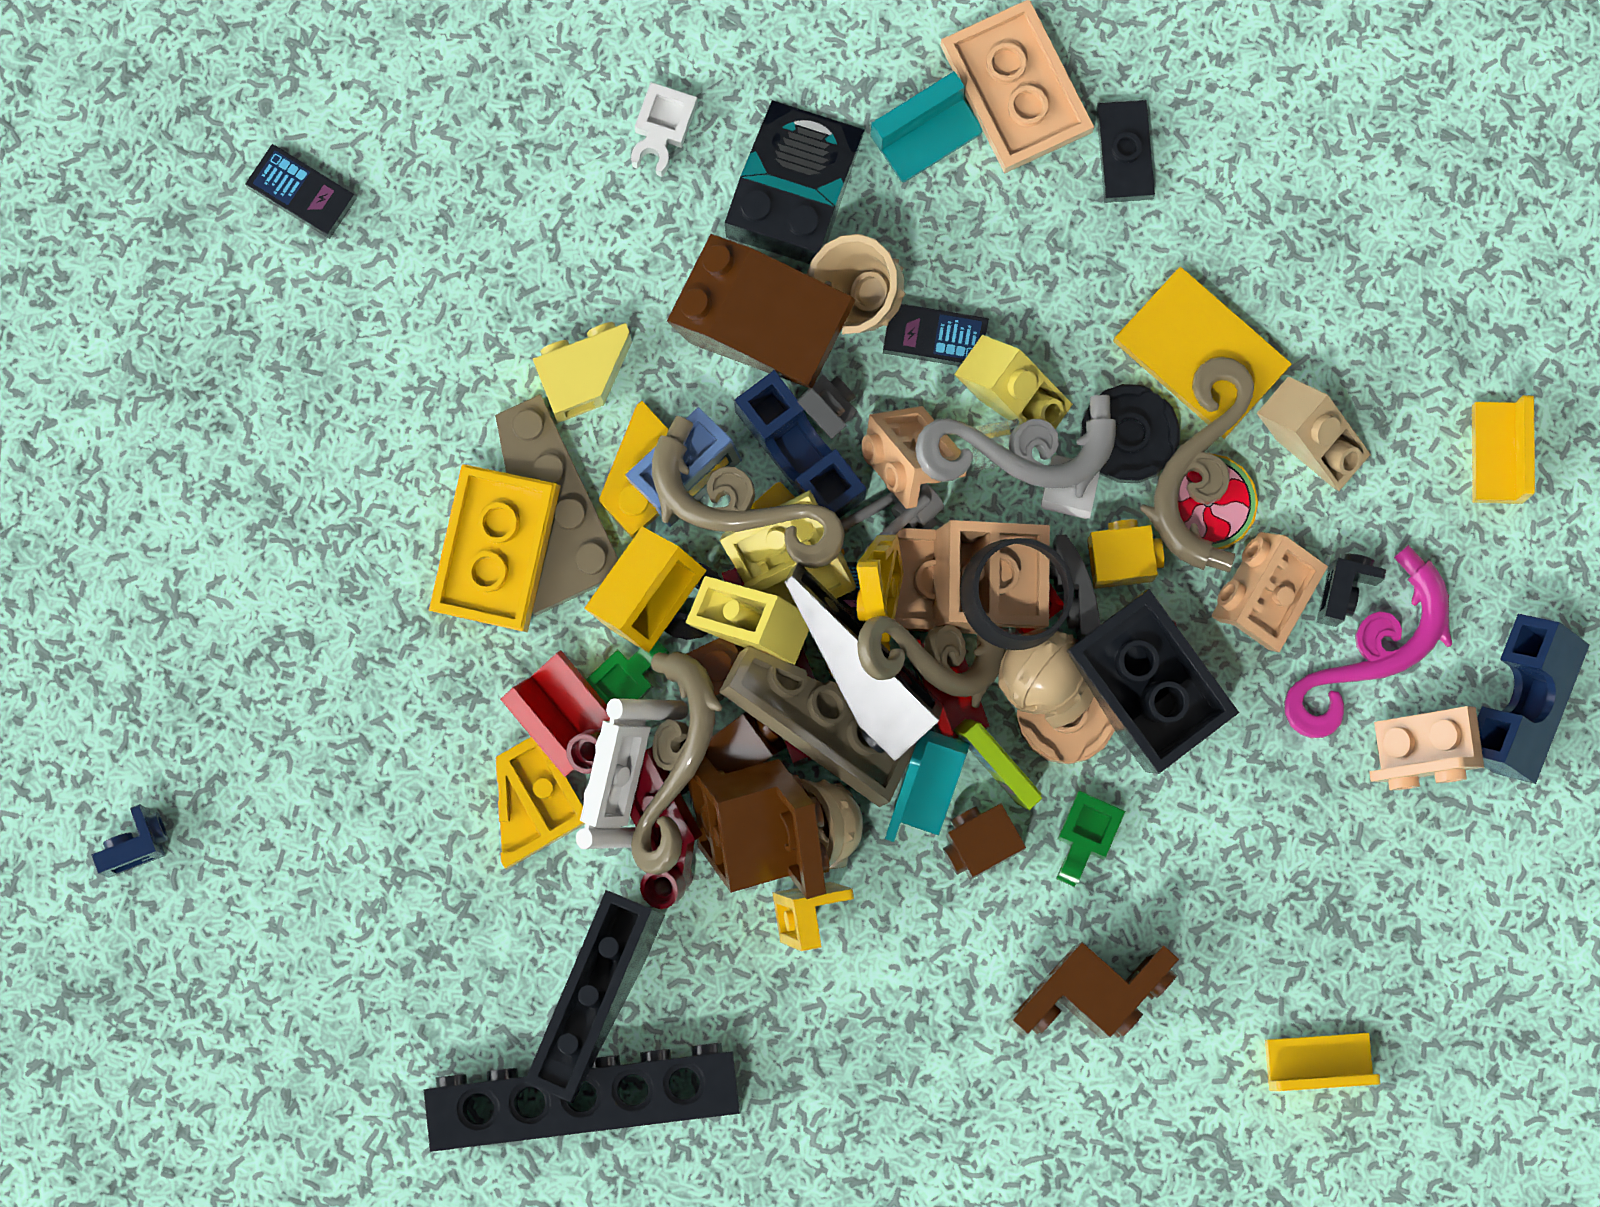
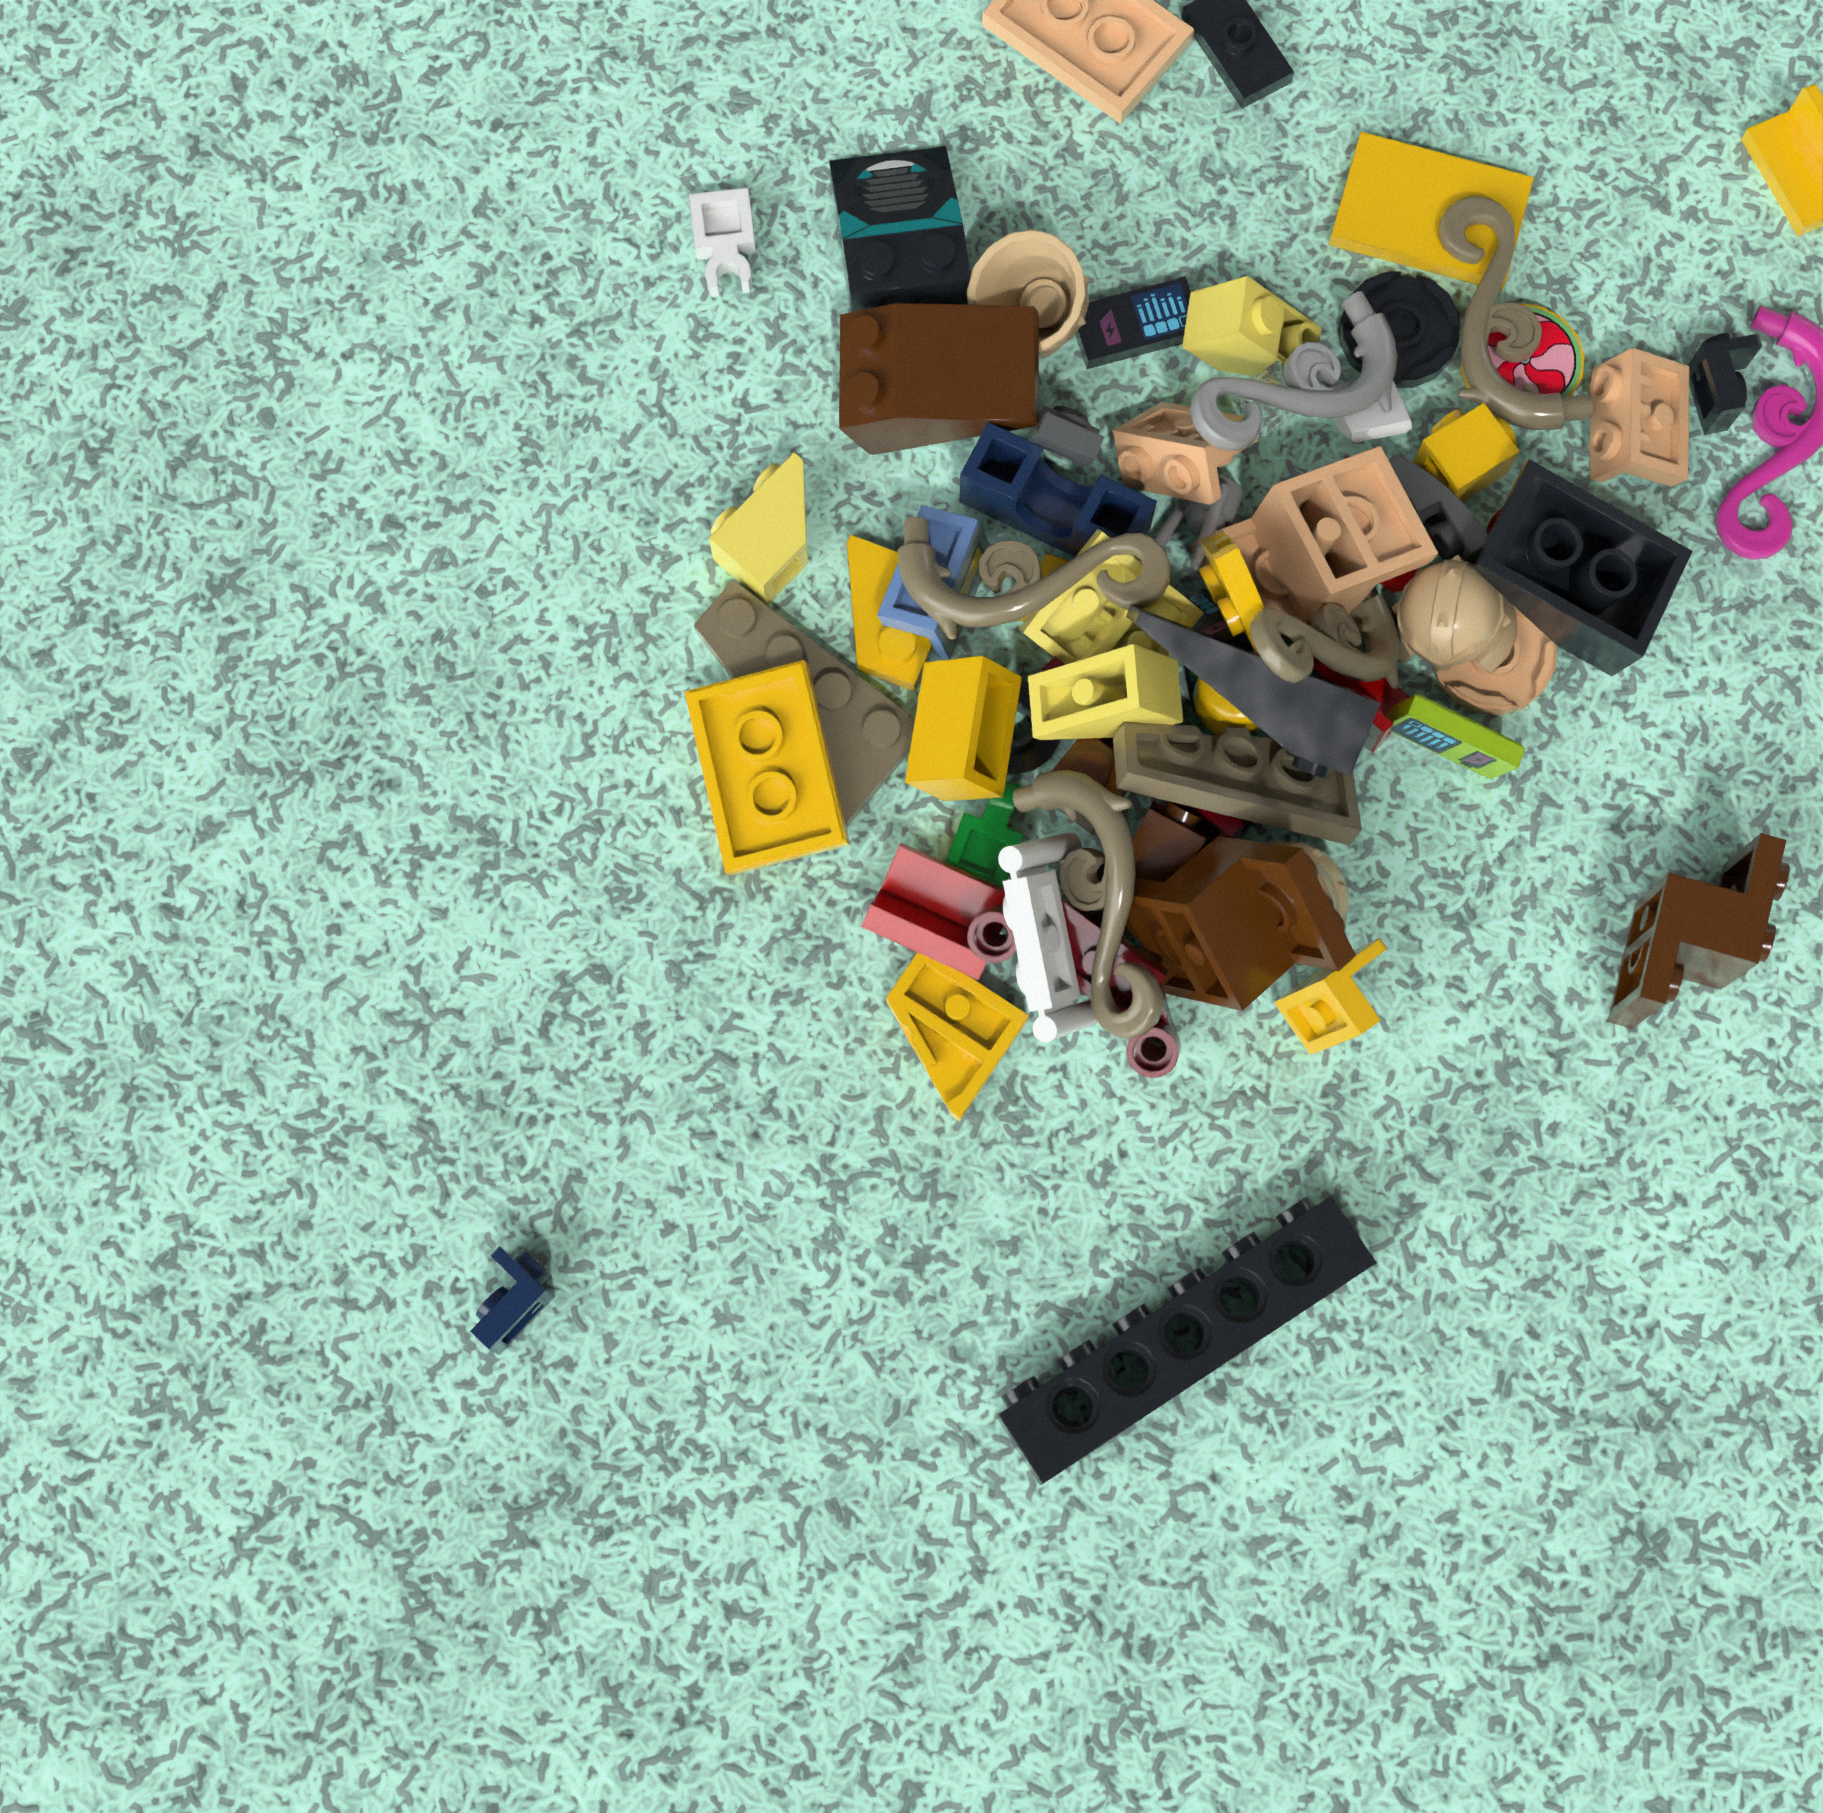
camera: 25 degrees left, 5 degrees down
(300, 191) = (352, 486): tile -> none
(594, 994) = (1139, 1209): black slope -> none
(926, 128) = (1011, 113): teal panel -> none
(929, 784) = (1391, 795): teal panel -> none
(977, 616) = (1359, 568): black tyre -> none
(982, 841) = (1480, 831): reddish brown brick -> none
(1088, 830) = (1590, 765): green plate -> none
(1314, 431) = (1597, 232): tan slope -> none

